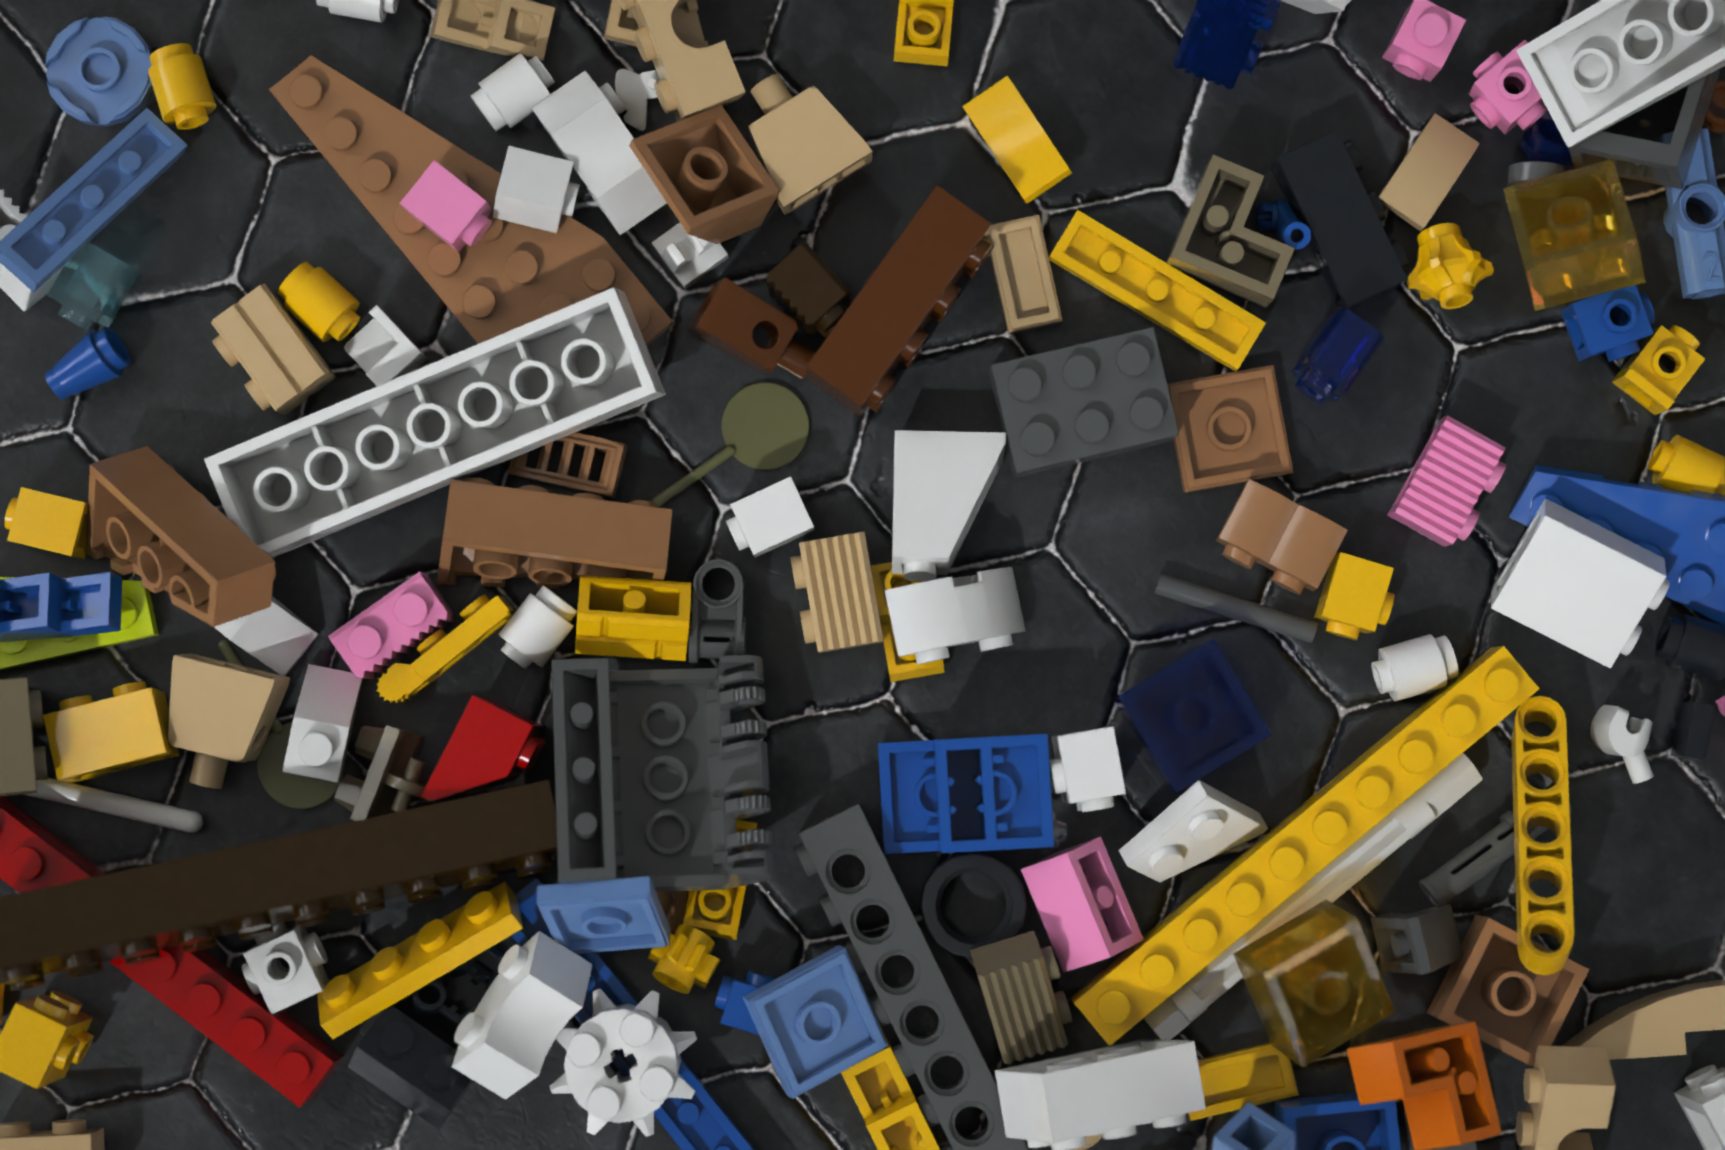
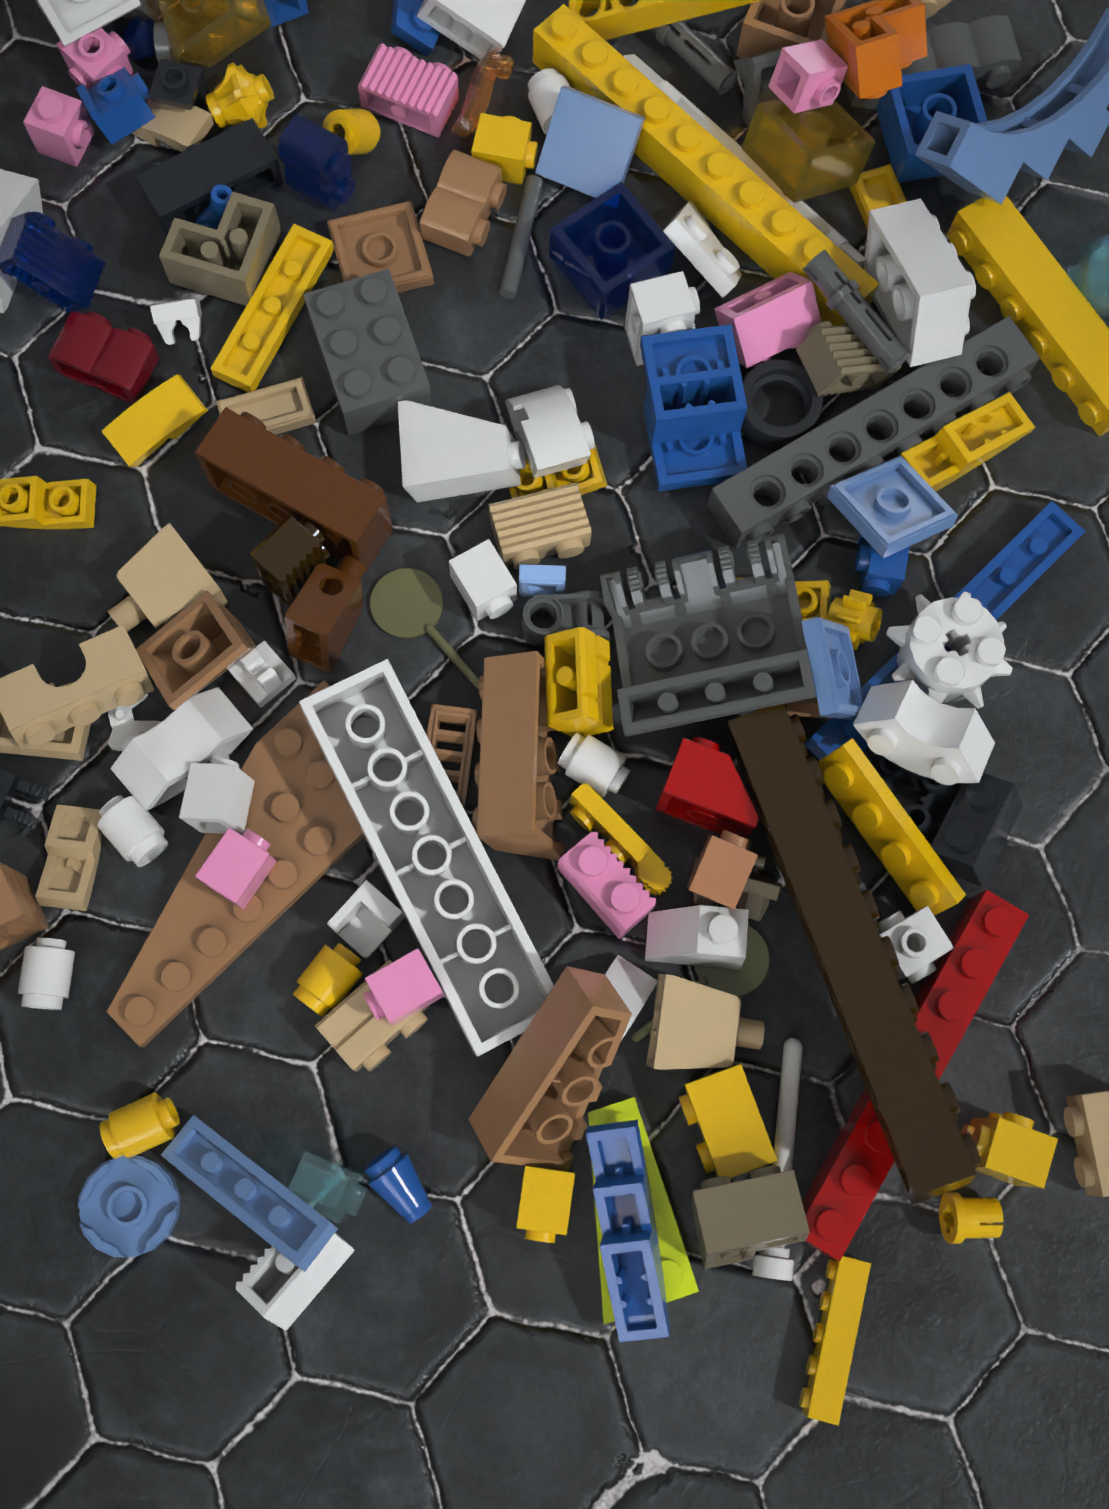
camera: 100 degrees left, 10 degrees down
(285, 381) = (402, 988): none -> bright pink brick
(381, 755) = (723, 869): none -> nougat brick
(769, 588) = (541, 579): none -> light blue tile
(1082, 994) = (852, 306): none -> dark grey pin
(1106, 82) = (104, 356): none -> dark red brick
(1158, 172) = (186, 310): none -> white tile
(1342, 704) = (588, 143): none -> medium blue tile
(1385, 403) = (356, 127): none -> yellow brick
(1390, 989) = (808, 76): none -> bright pink brick
(1437, 573) = (480, 90): none -> clear orange arm
(1444, 112) = (118, 104): none -> blue brick
(1461, 190) = (179, 85): none -> black bracket

